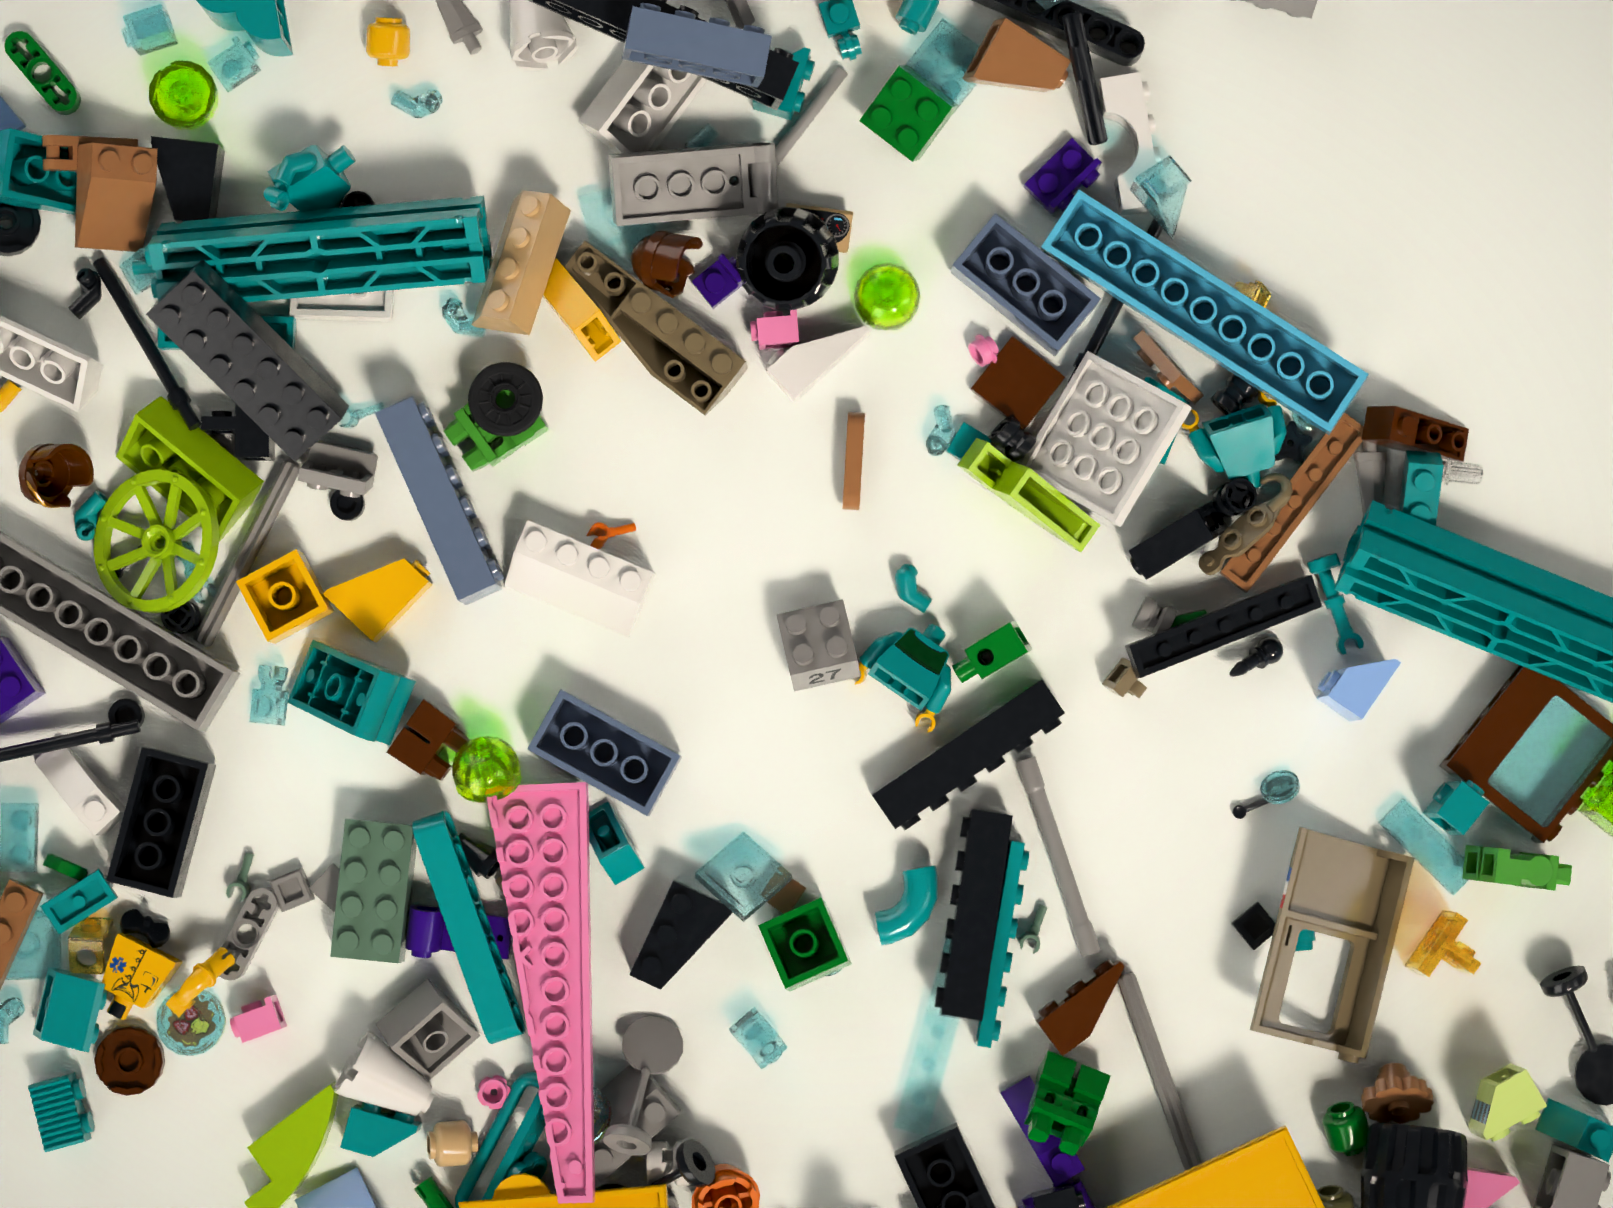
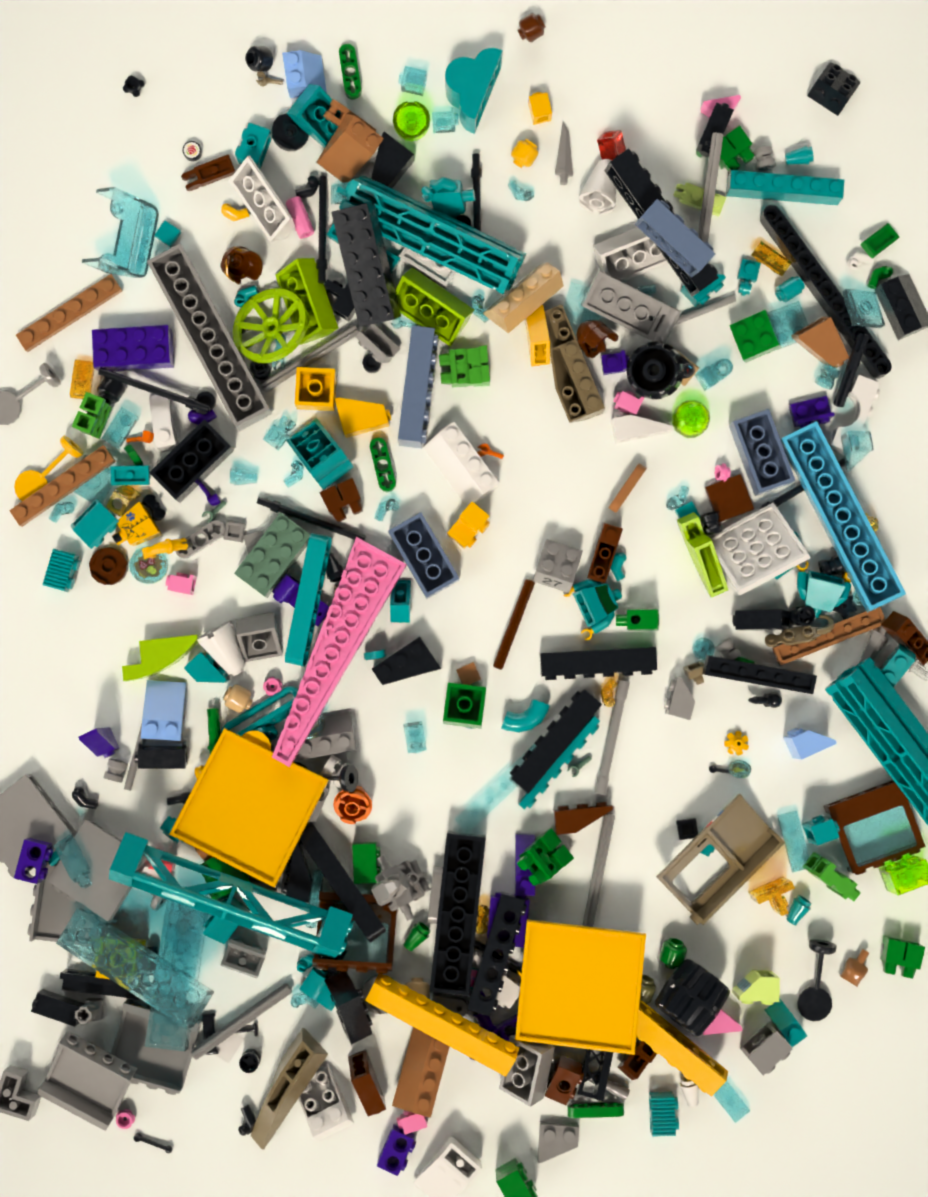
camera: 25 degrees right, 0 degrees up
(68, 826) = (147, 437): none -> orange hand
(101, 345) = (300, 217): none -> bright pink axle
(130, 749) = (196, 418): none -> dark purple arm
(229, 860) = (212, 499): none -> dark purple hand
(253, 798) = (241, 476): none -> clear light blue cone
(333, 116) = (476, 174): none -> black bar
(333, 812) = (276, 507): none -> black bar
(334, 744) = (296, 473): none -> clear light blue arm
(387, 361) = (432, 306): none -> lime slope
(433, 639) = (374, 452): none -> green beam
(486, 769) = (362, 528): clear neon green cylinder -> none
(501, 711) = (385, 506): none -> clear light blue arm
(515, 418) = (482, 368): black wheel -> none
(622, 948) = (375, 654): none -> teal tile
(646, 665) = (469, 524): none -> yellow brick
(652, 1048) = (360, 710): light grey piece -> none
(743, 876) = (454, 655): clear light blue tile -> none
(805, 774) = (513, 624): none -> reddish brown axle
(877, 211) = (712, 375): none -> clear light blue piece
(878, 581) = (604, 552): none -> reddish brown slope
(1010, 793) = (607, 694): none -> clear yellow arm
(1055, 108) = (827, 376): none -> clear light blue wheel
(1114, 635) = (702, 648): none -> clear light blue piece
(1129, 738) = (681, 701): none -> light grey slope
(1169, 372) = (806, 536): medium nougat wing -> none
(1245, 752) = (732, 743): none -> yellow plant
(1333, 600) = (820, 695): teal piece -> none
(1396, 1096) = (707, 952): medium nougat plant -> none
(1495, 947) = (799, 908): none -> teal cone

